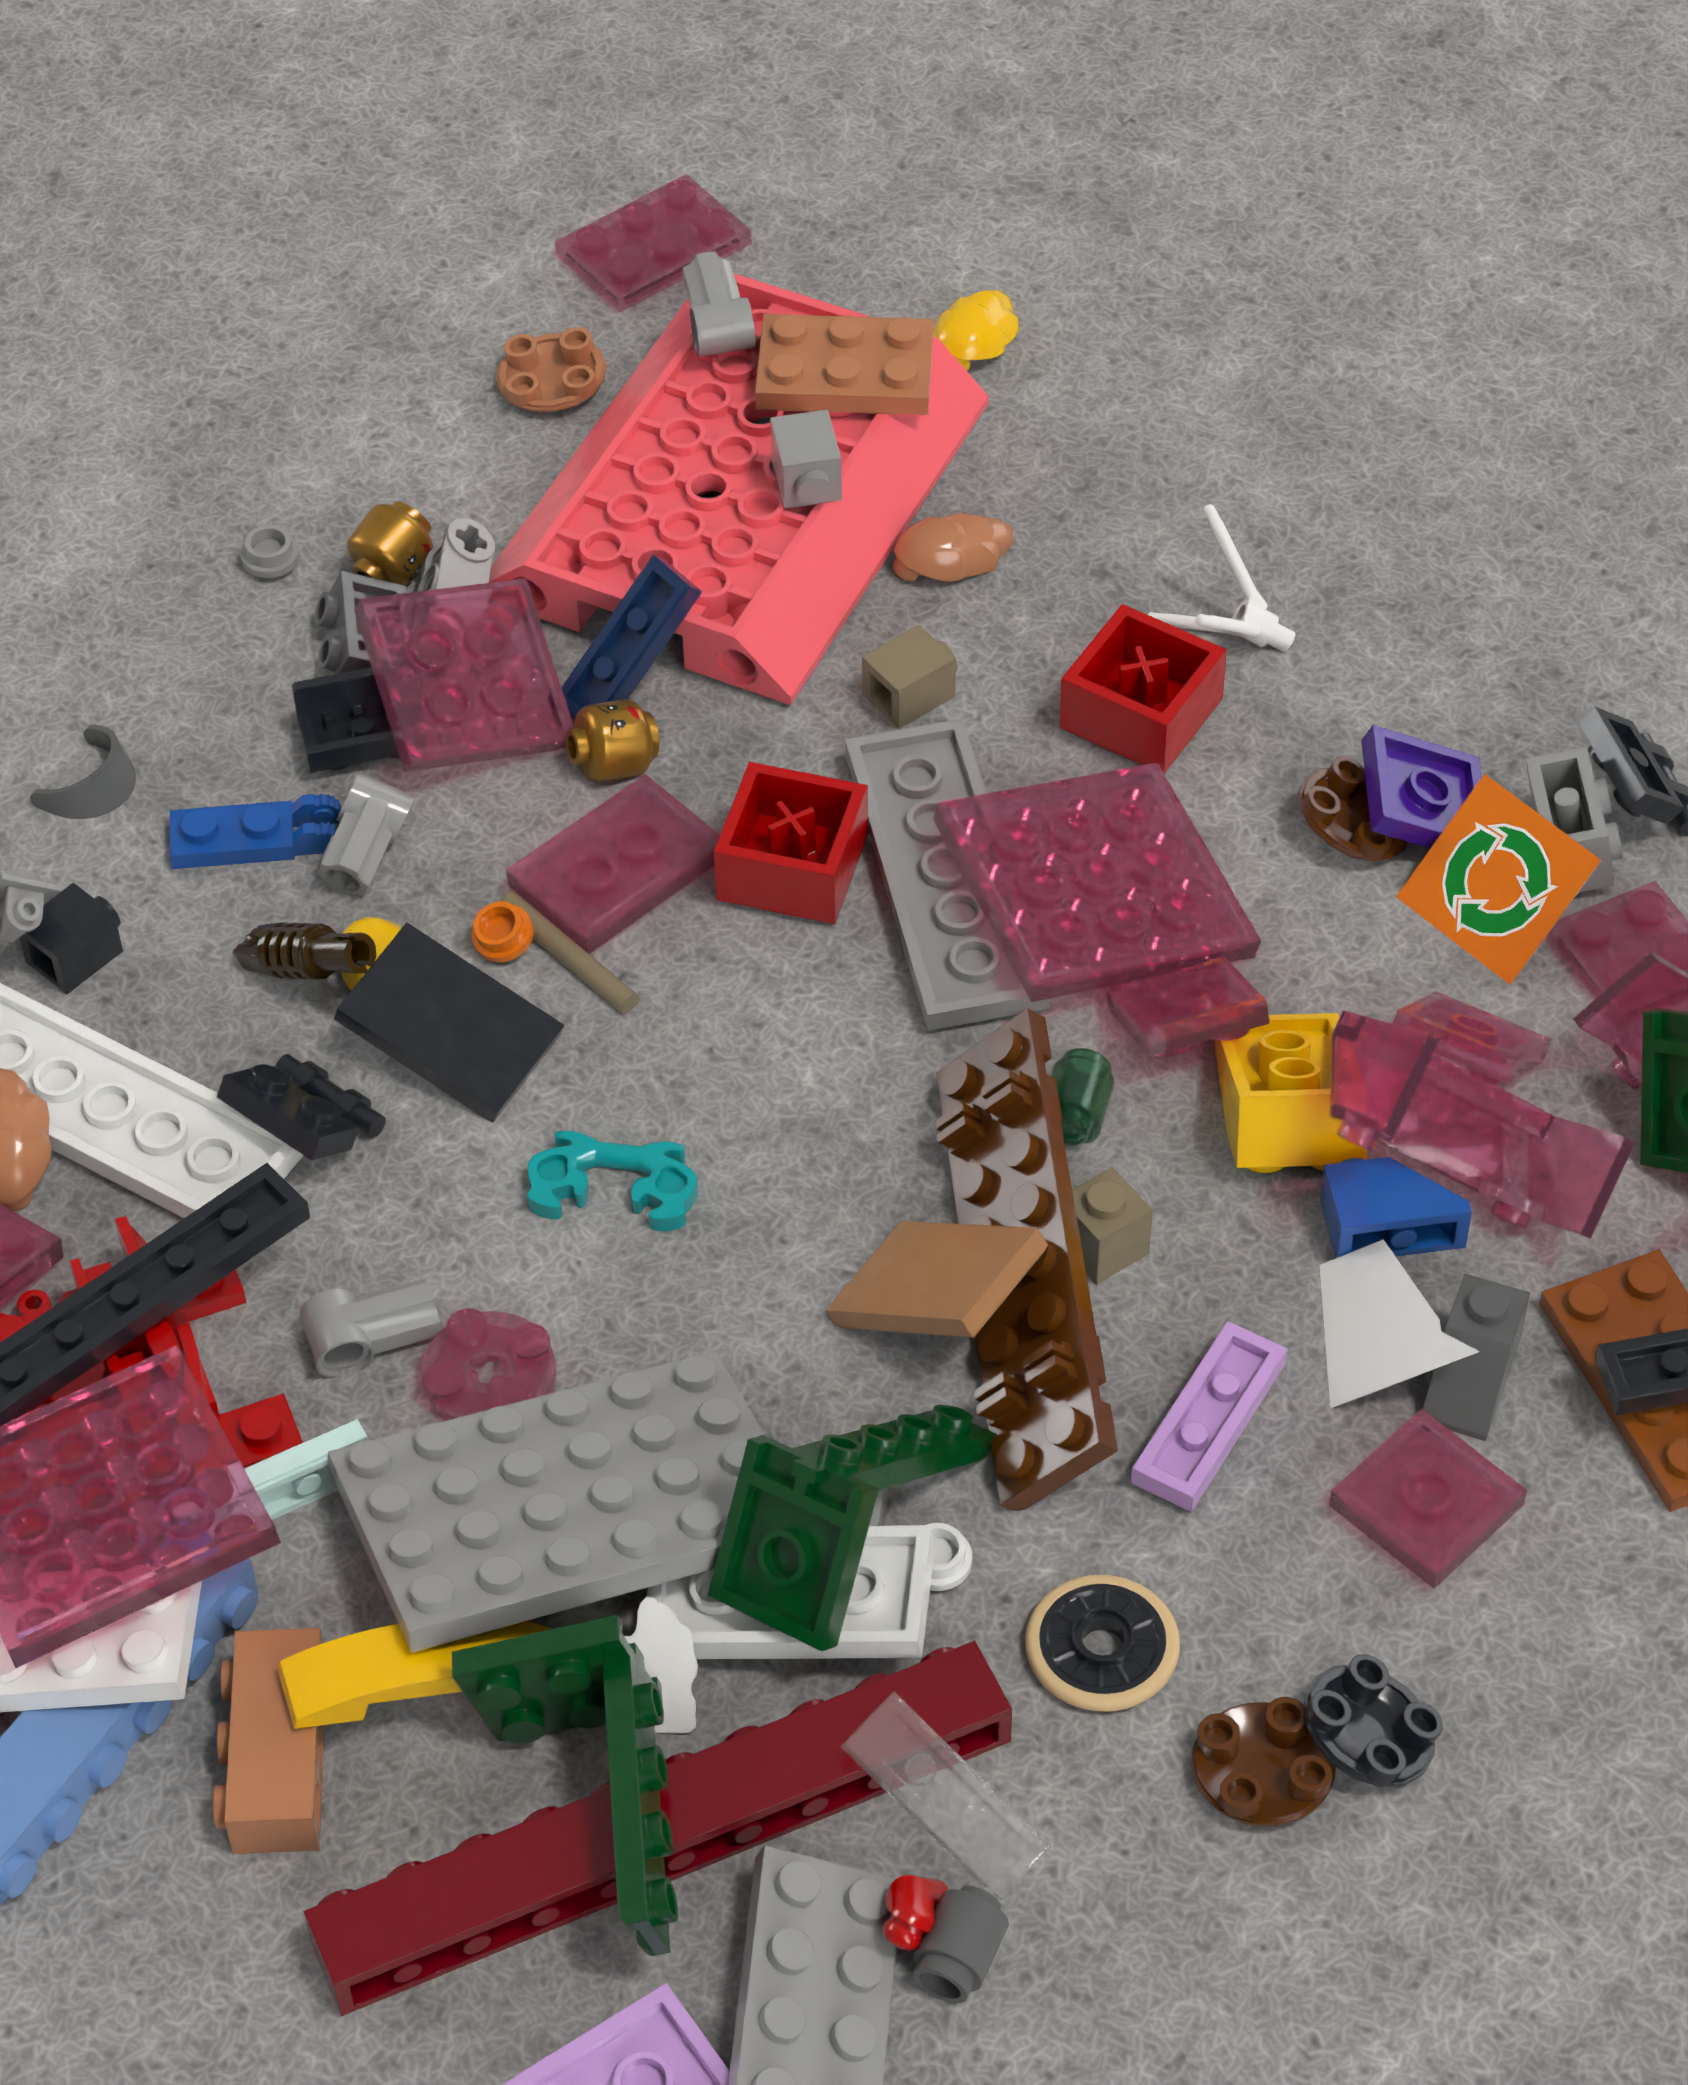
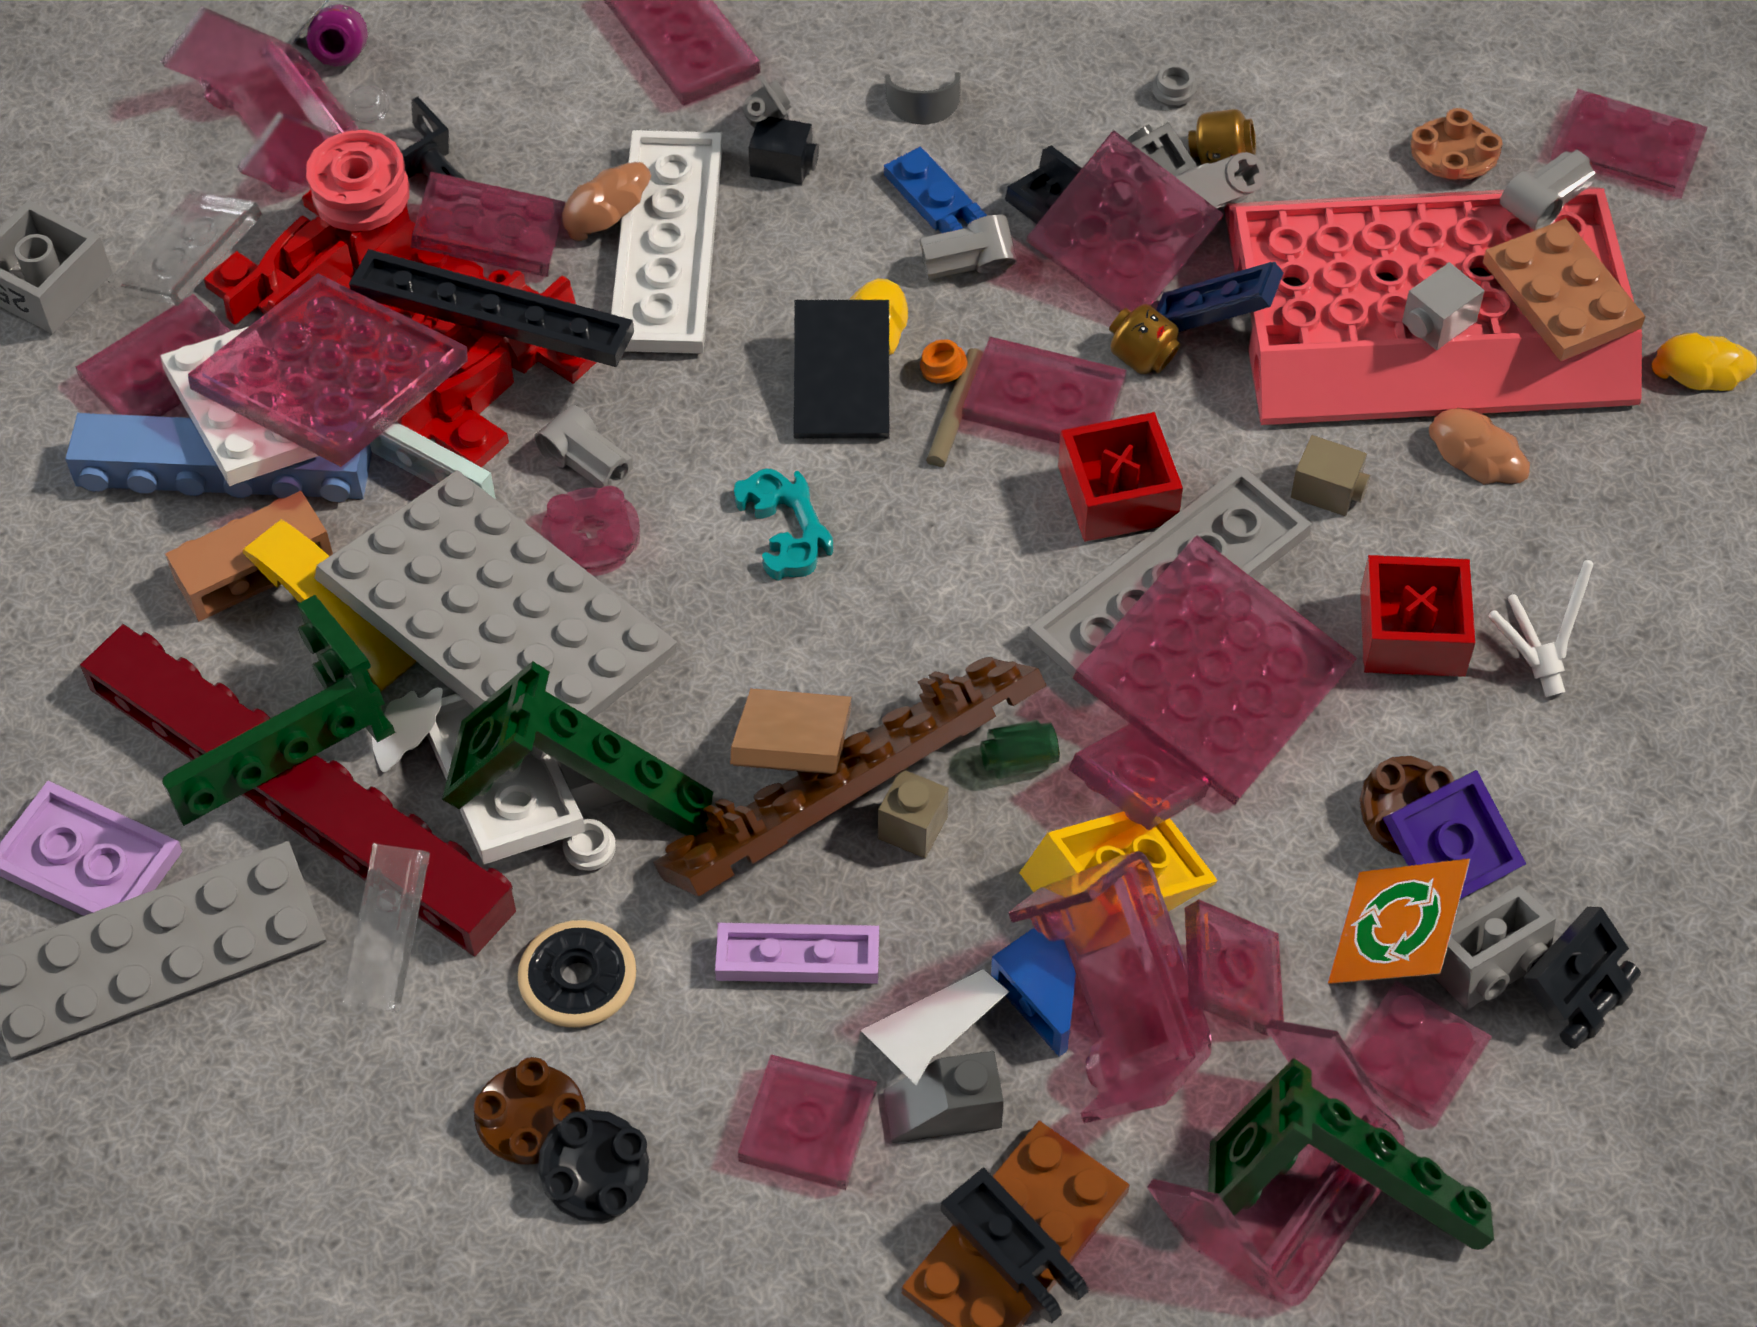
camera: 60 degrees right, 5 degrees up
(301, 1106) = (710, 327): black plate -> none
(304, 951) = (841, 264): dark brown hinge -> none
(912, 1908) = (298, 947): red arm -> none
(961, 1944) = (290, 992): dark grey brick -> none

